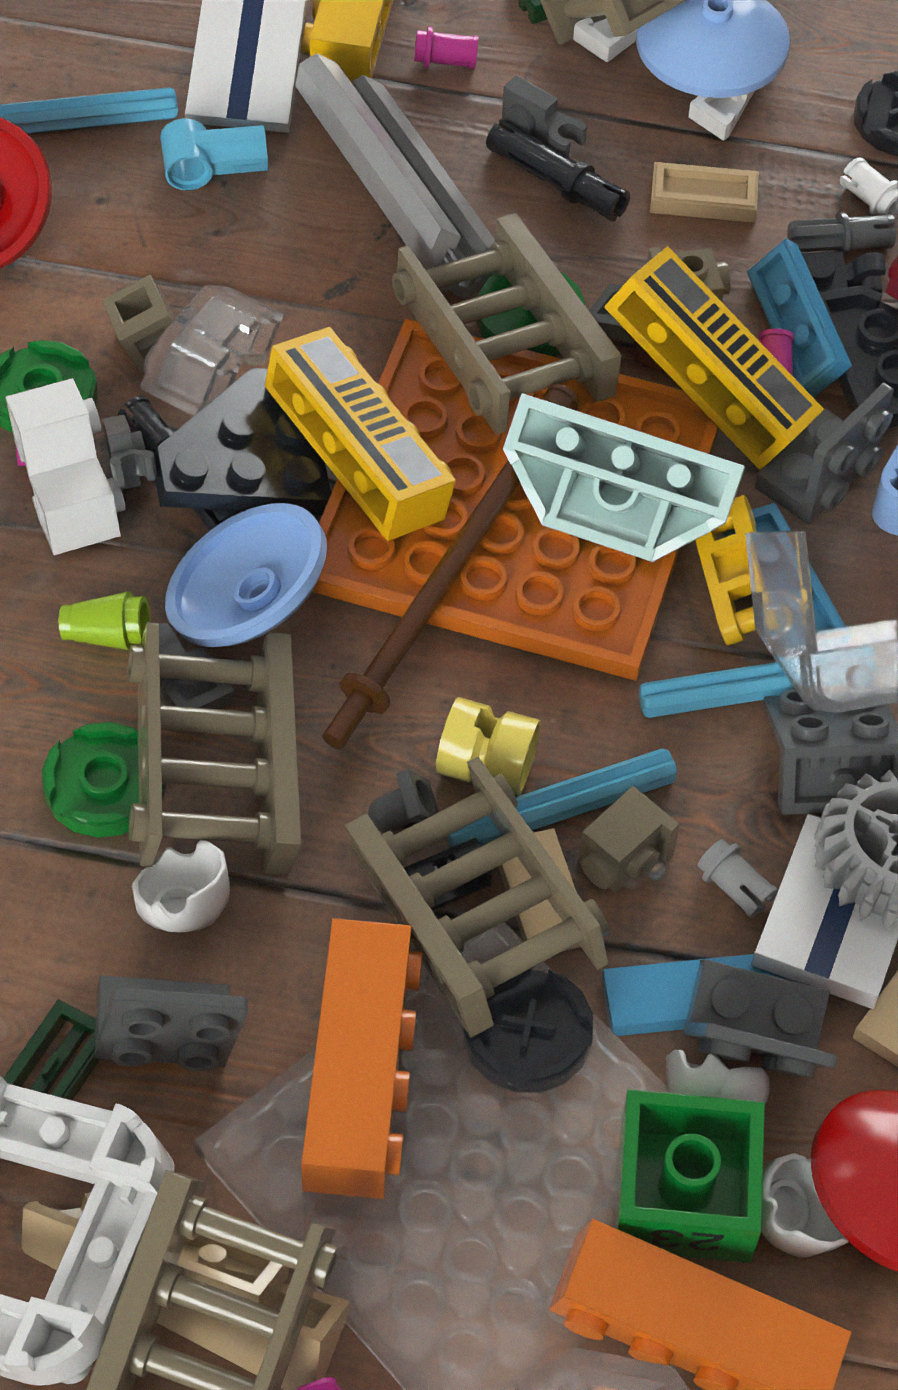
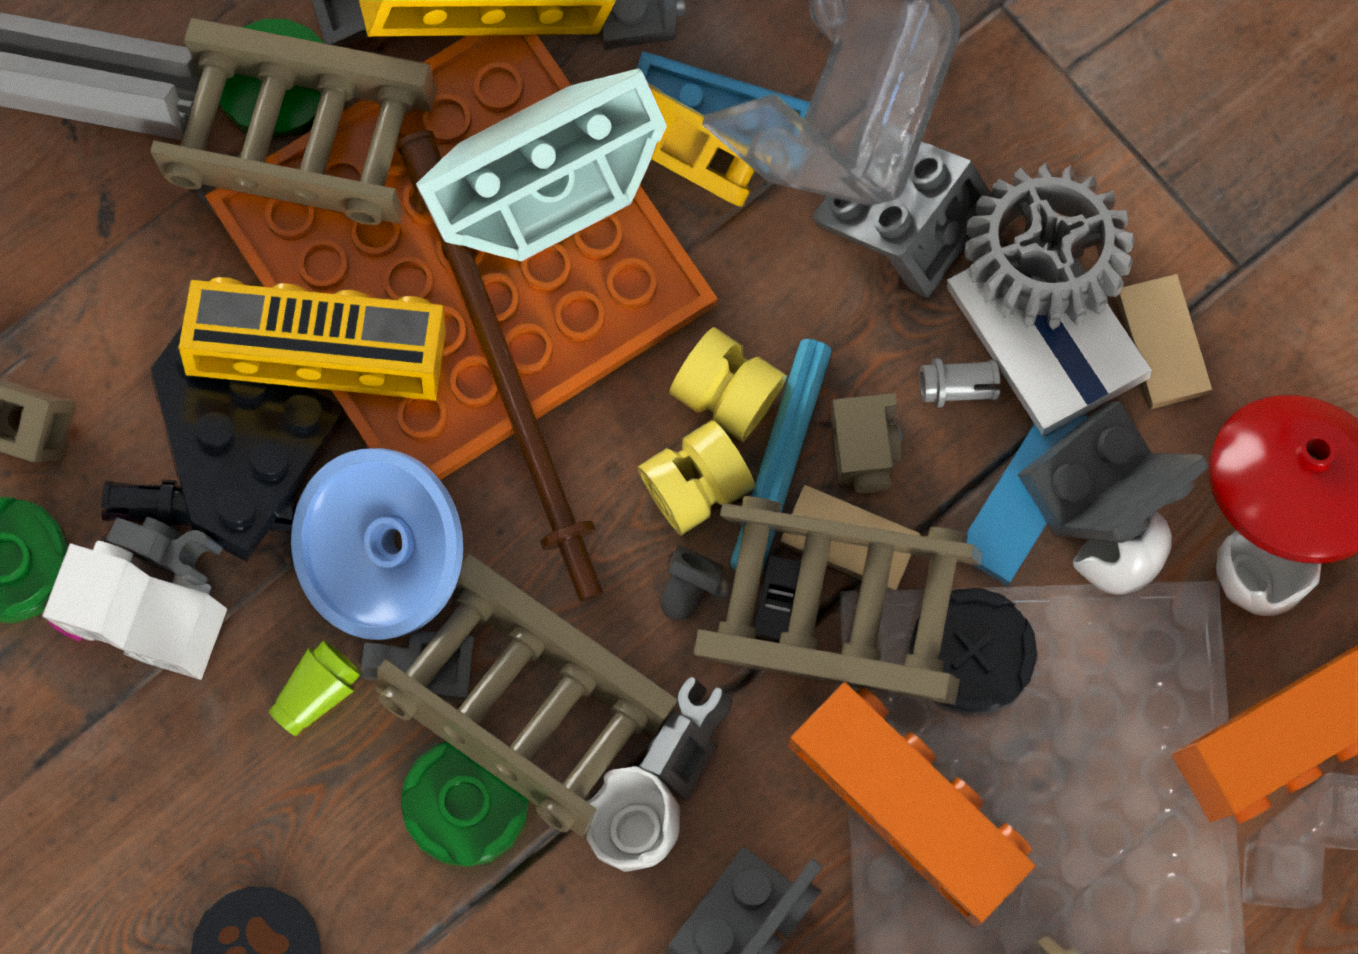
camera: 50 degrees left, 20 degrees up
(206, 347) = (101, 388): clear brick -> none
(268, 884) = (684, 743): none -> dark grey plate
(579, 717) = (727, 384): none -> light yellow wheel
(691, 1174) = (1201, 640): green brick -> none
(712, 689) = (774, 256): medium azure axle -> none

